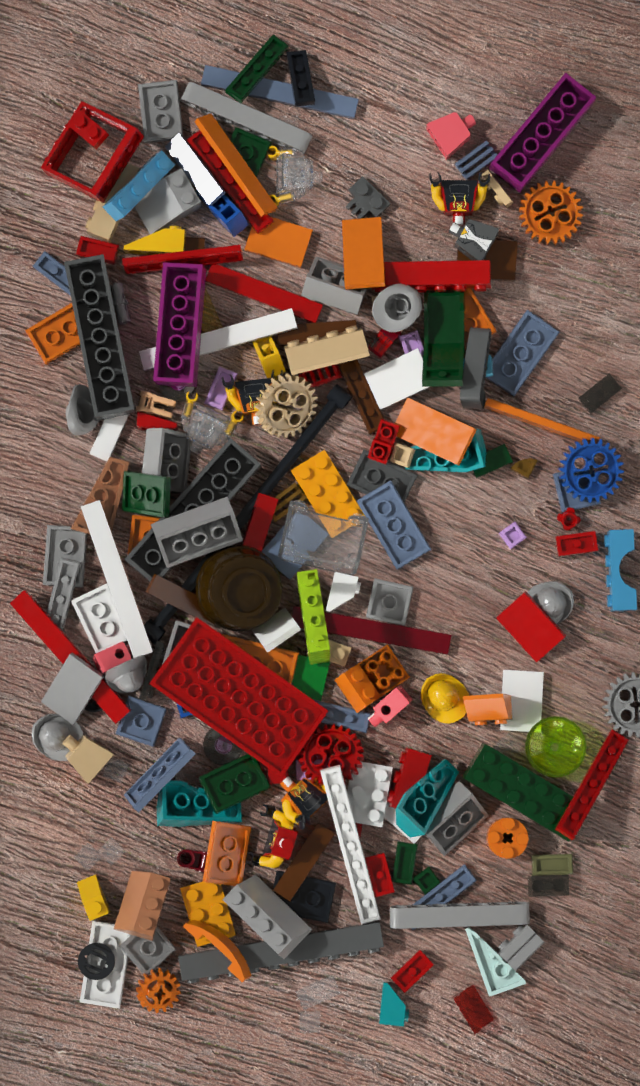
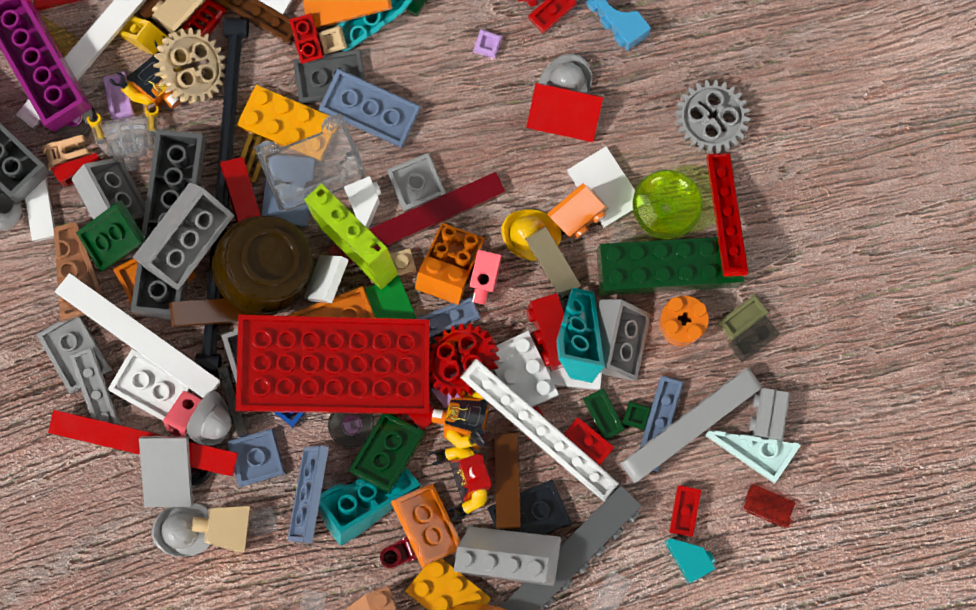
camera: 35 degrees left, 5 degrees down
(444, 730) = (552, 261): none -> dark tan tile

